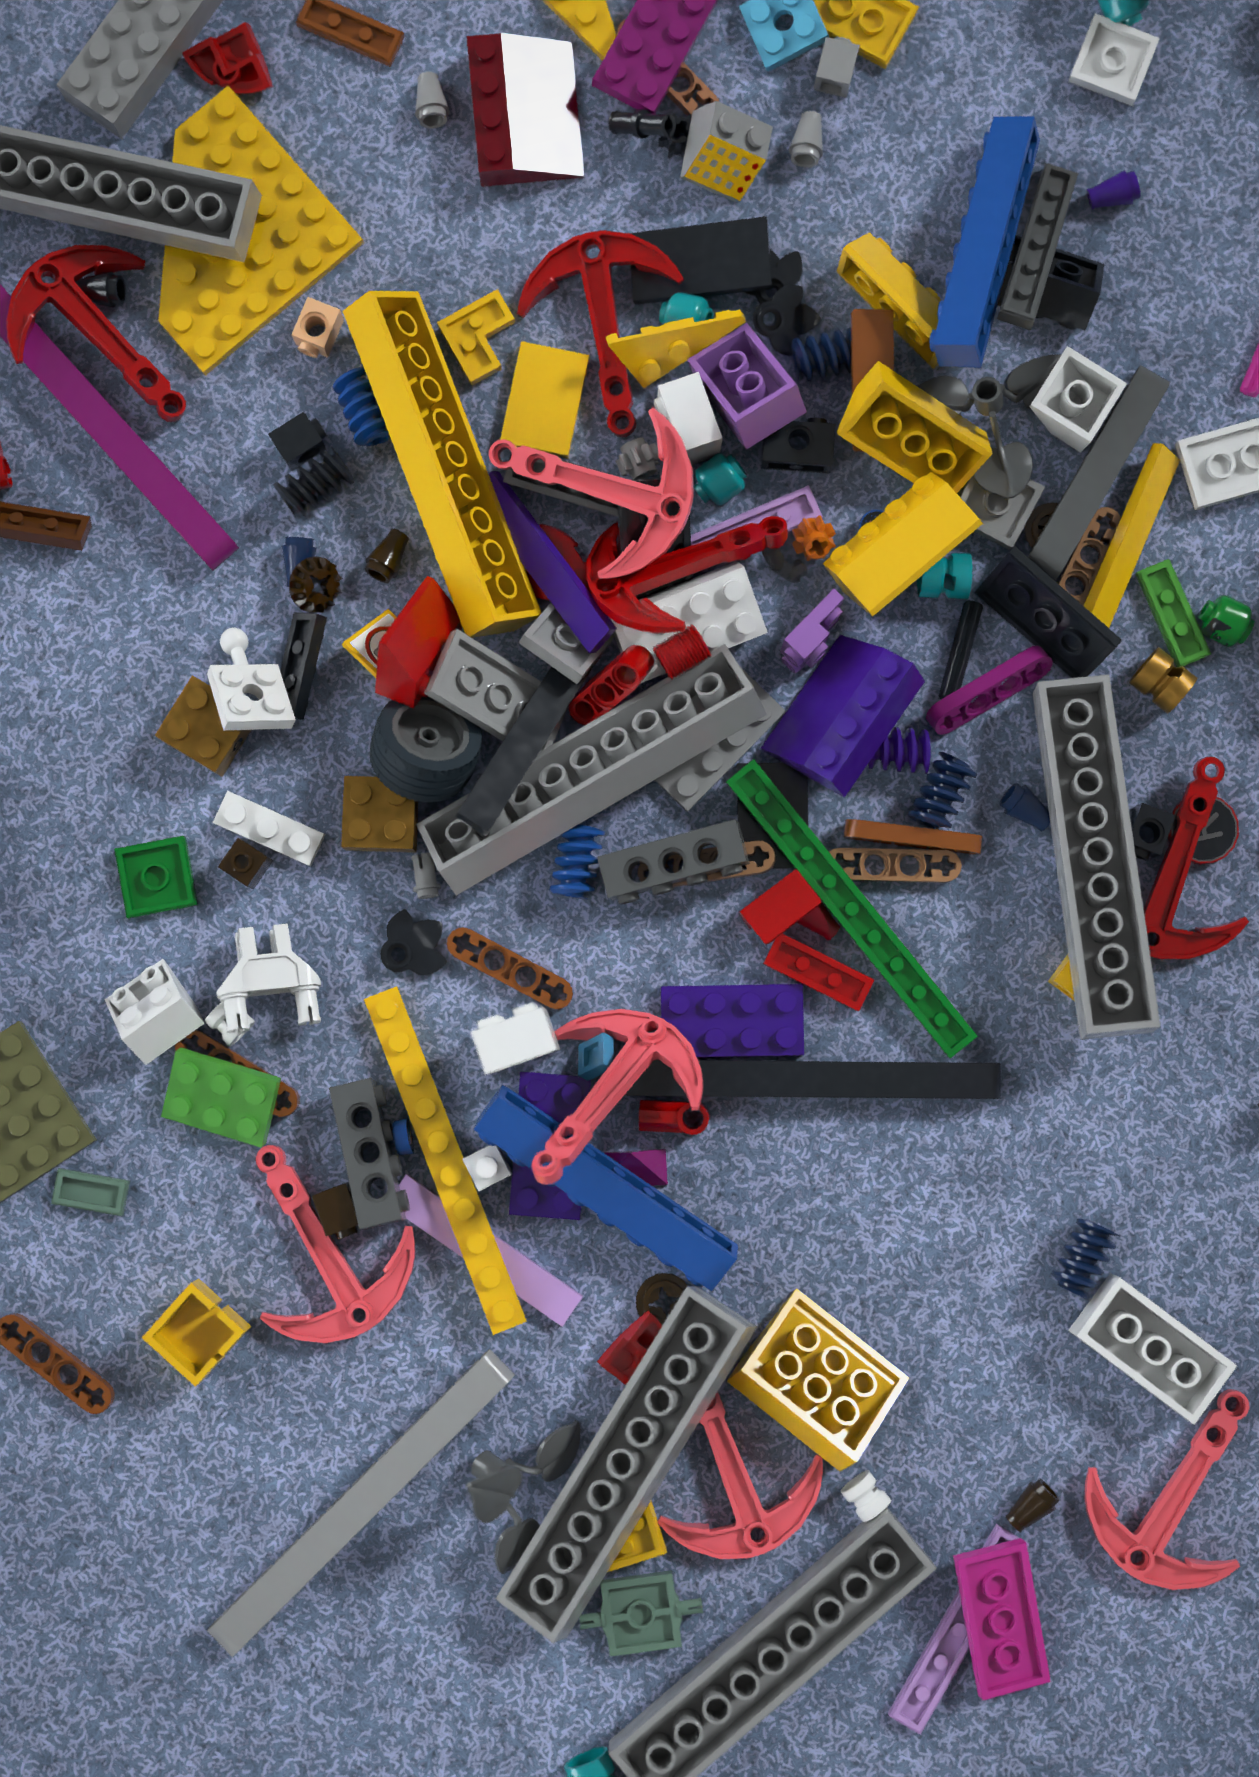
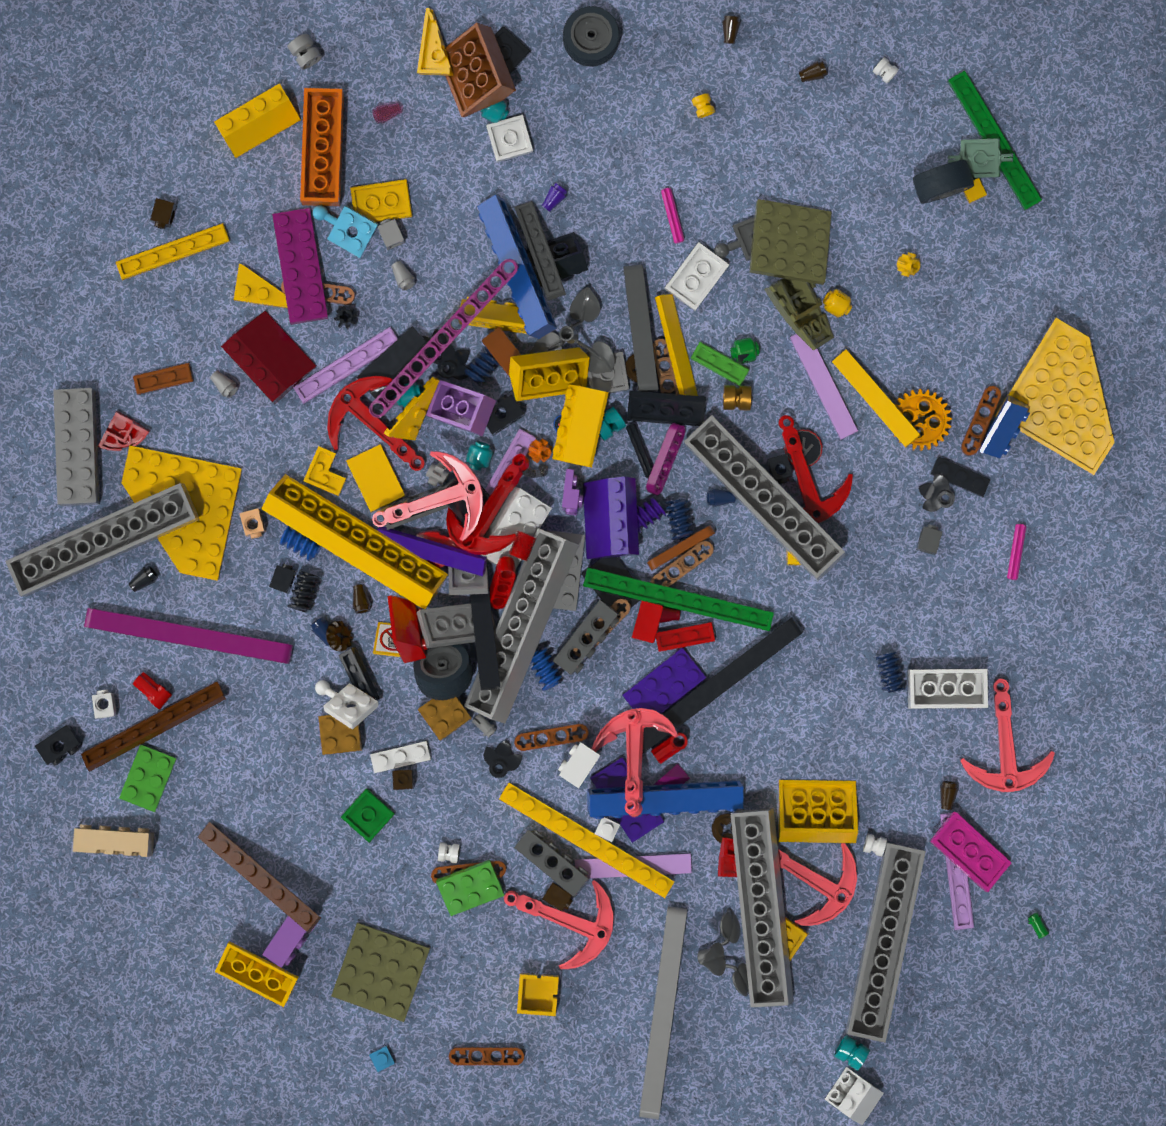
camera: 35 degrees left, 0 degrees up
(65, 268) = (147, 595): red piece -> none
(90, 1191) = (445, 972): sand green tile -> none
(153, 1012) = (412, 873): white slope -> none
(267, 975) = (453, 816): white connector -> none
(403, 1137) = (564, 847): blue tile -> none
(595, 1056) = (617, 746): dark azure plate -> none
(622, 206) = (345, 366): none -> lavender tile
(641, 1613) = (817, 967): sand green plate -> none
(642, 124) = (326, 325): black pin -> none
(690, 412) = (446, 440): white brick -> none
(724, 150) = (371, 310): light grey slope -> none
(818, 263) = (437, 345): none -> magenta beam
(1076, 399) = (607, 304): white slope -> none

